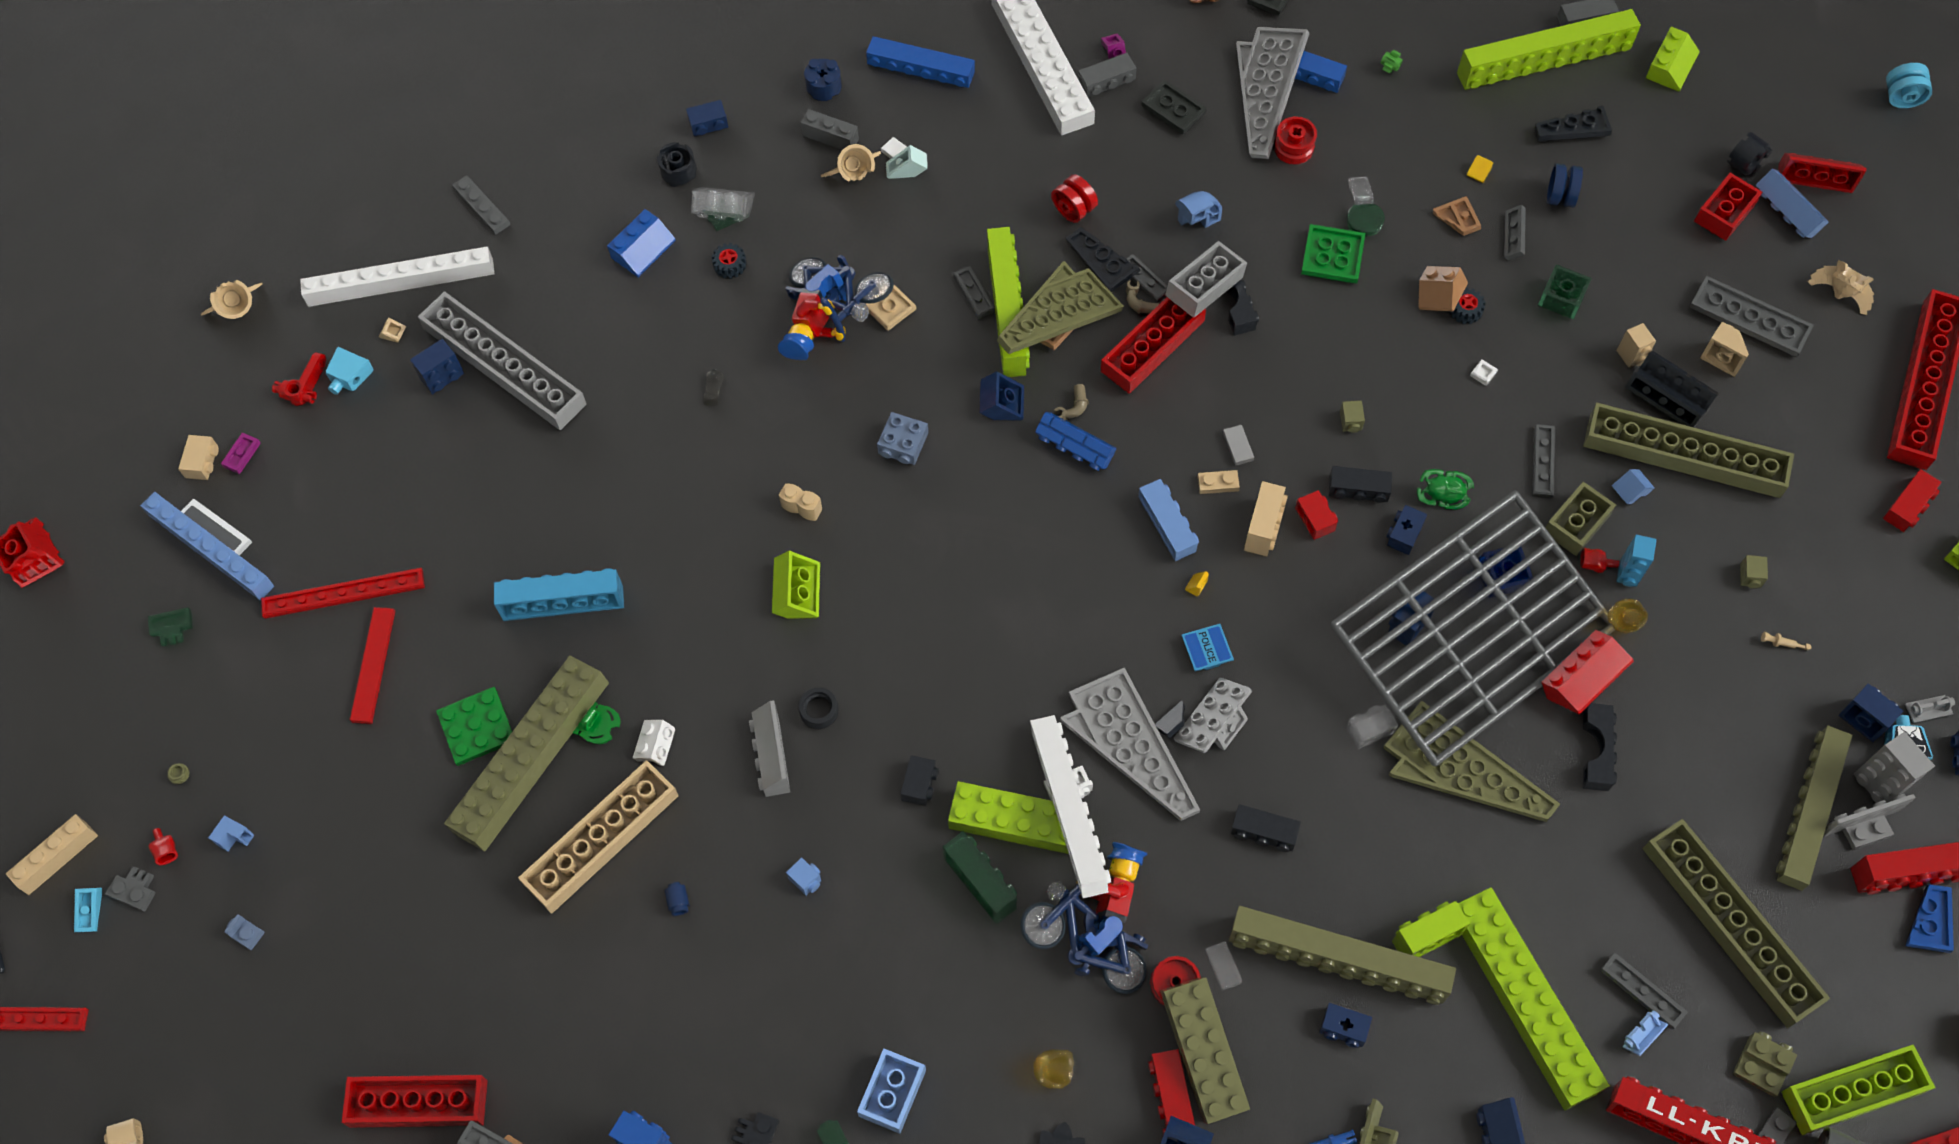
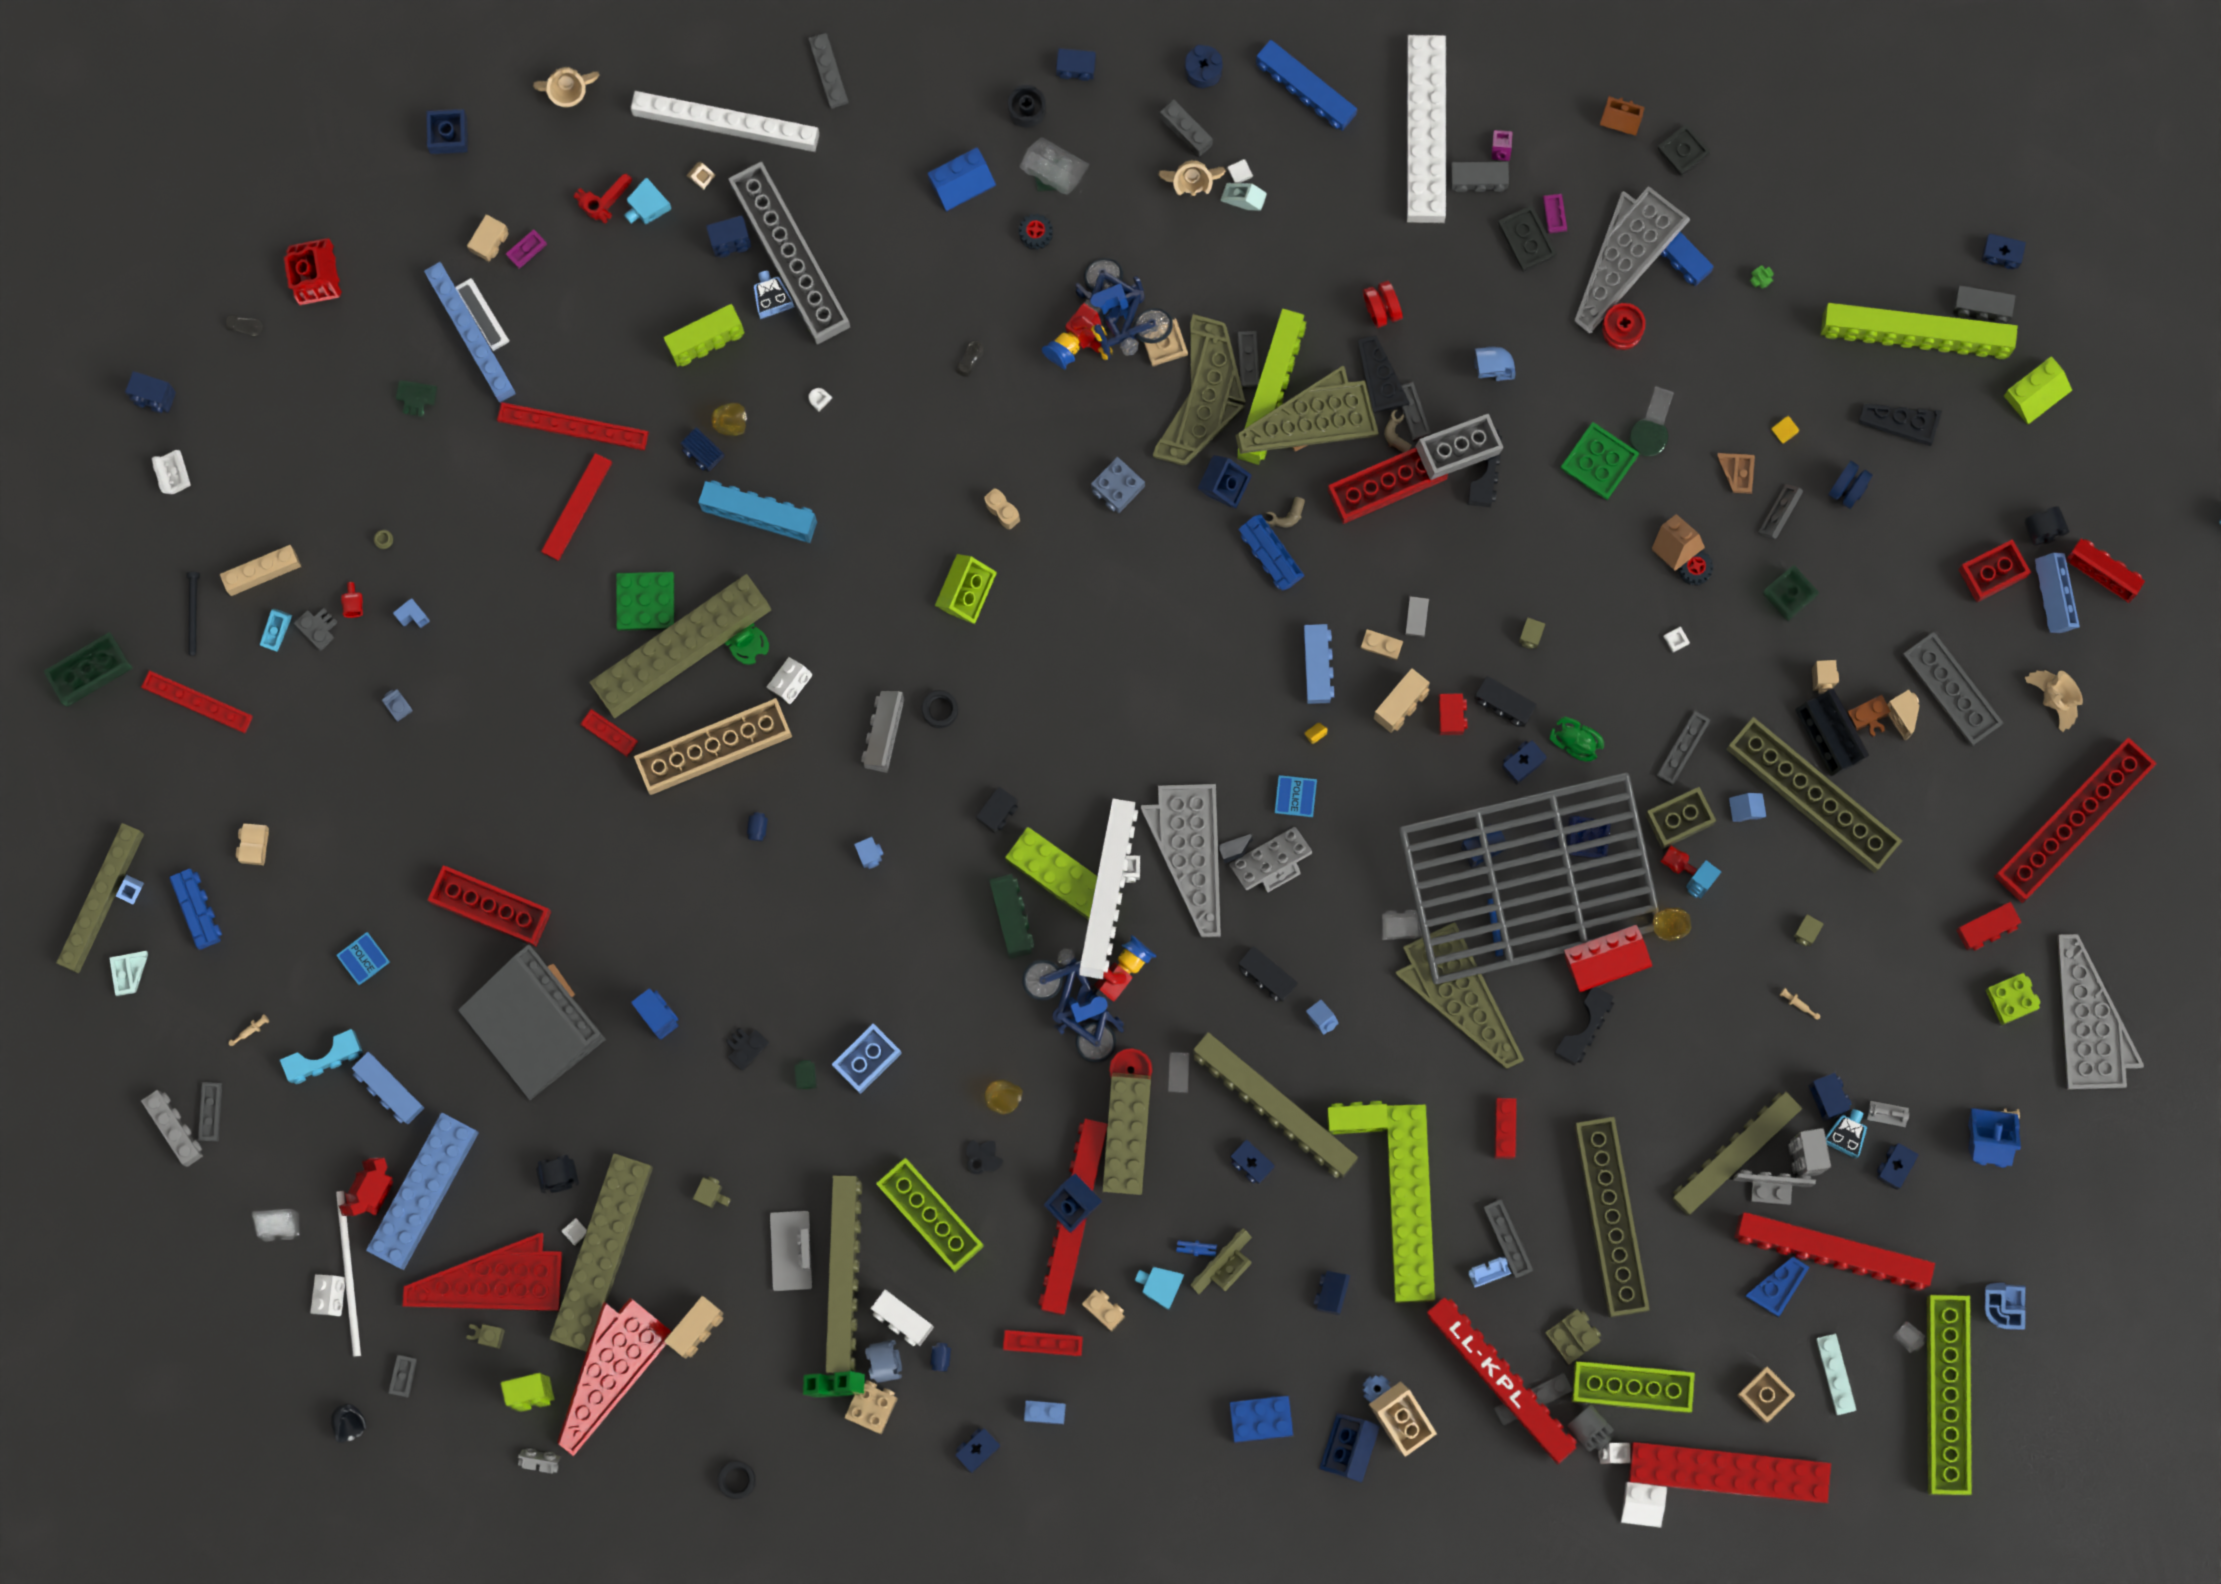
camera: 25 degrees right, 15 degrees up
(126, 380) = (447, 131): none -> dark blue brick
(444, 459) = (704, 335): none -> lime brick
(482, 563) = (702, 450): none -> dark blue brick
(484, 869) = (609, 732): none -> red tile
(498, 524) = (729, 419): none -> clear yellow hair
(499, 404) = (771, 295): none -> torso
(581, 476) = (819, 398): none -> white tile
(956, 331) = (1212, 385): none -> olive wing
(1187, 80) = (1554, 213): none -> magenta plate
(1341, 846) = (1322, 1017): none -> medium blue brick
(1464, 696) = (1496, 934): none -> blue bar
(1579, 879) = (1505, 1128): none -> red brick
(1695, 361) = (1869, 714): none -> dark orange brick

